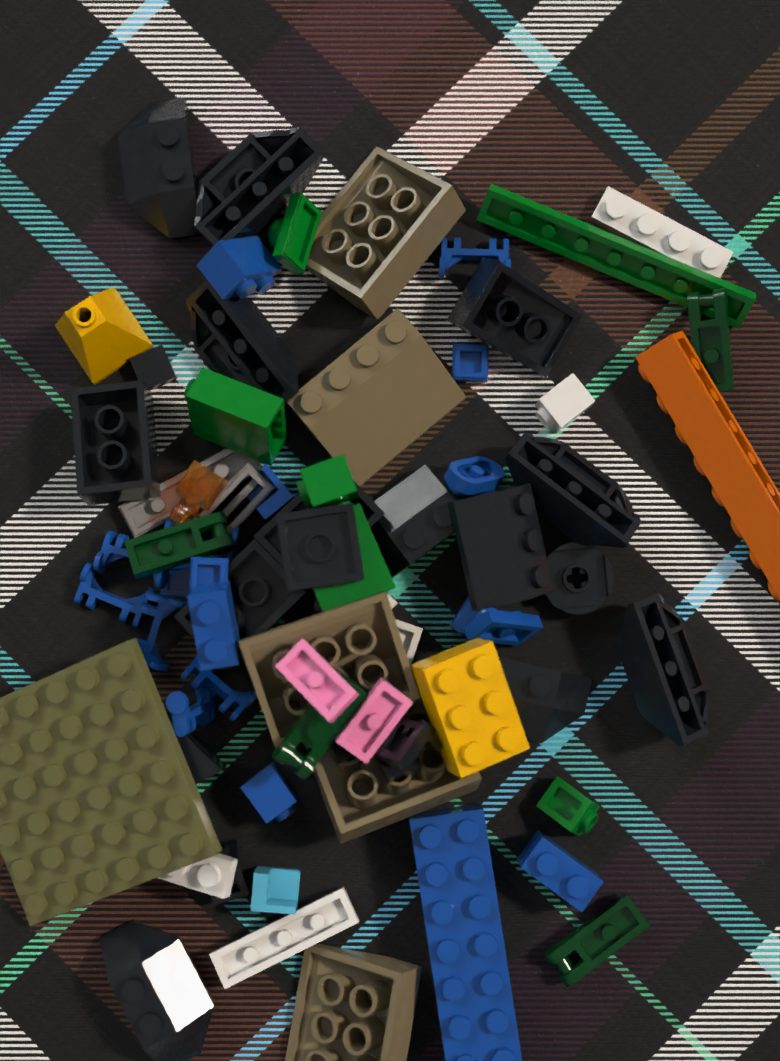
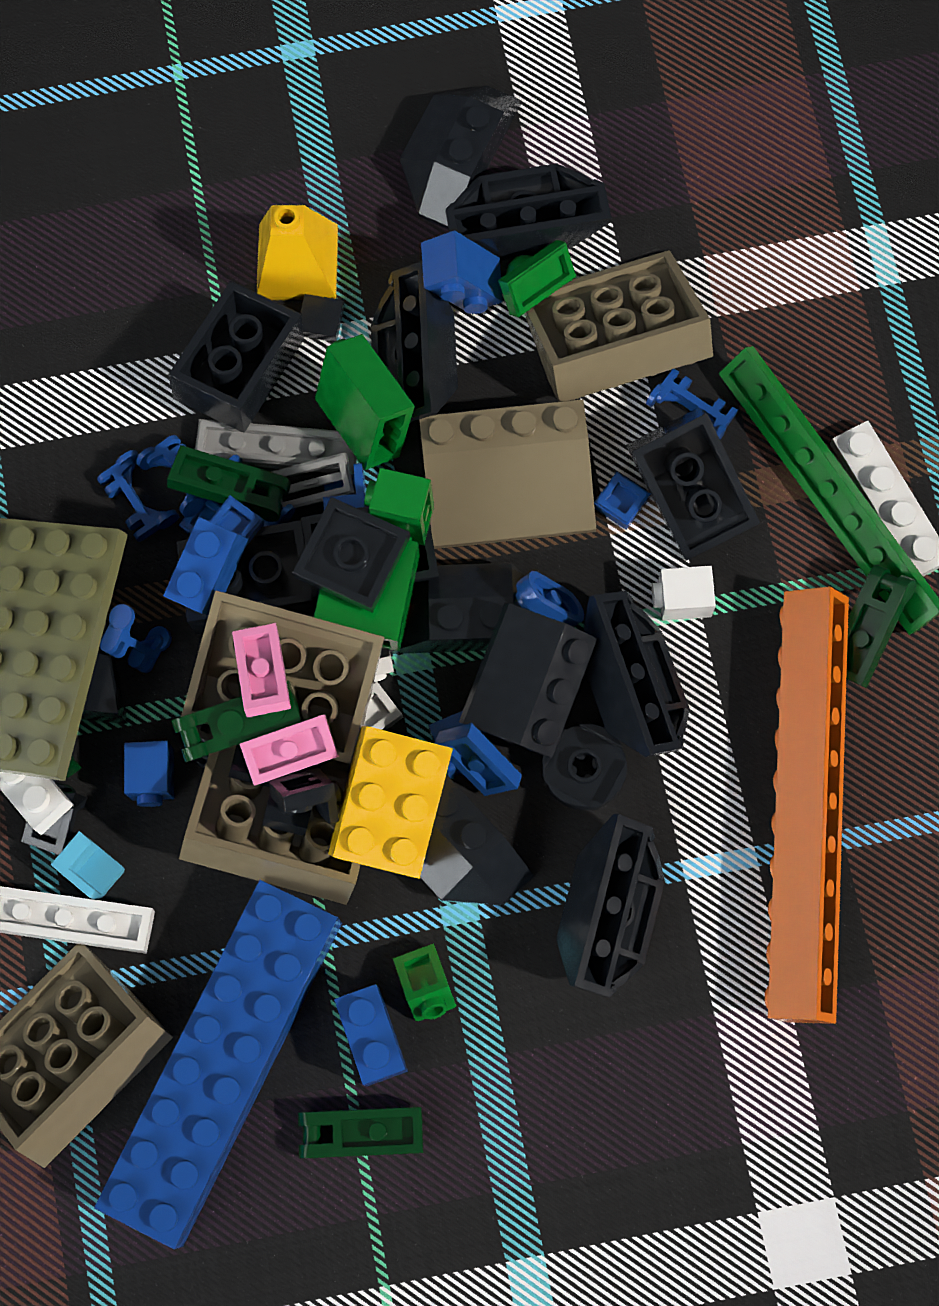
camera: 40 degrees right, 10 degrees down
(165, 606) = (133, 568): blue piece -> none
(199, 490) = (282, 447): clear orange plate -> none
(236, 699) = (166, 619): blue piece -> none

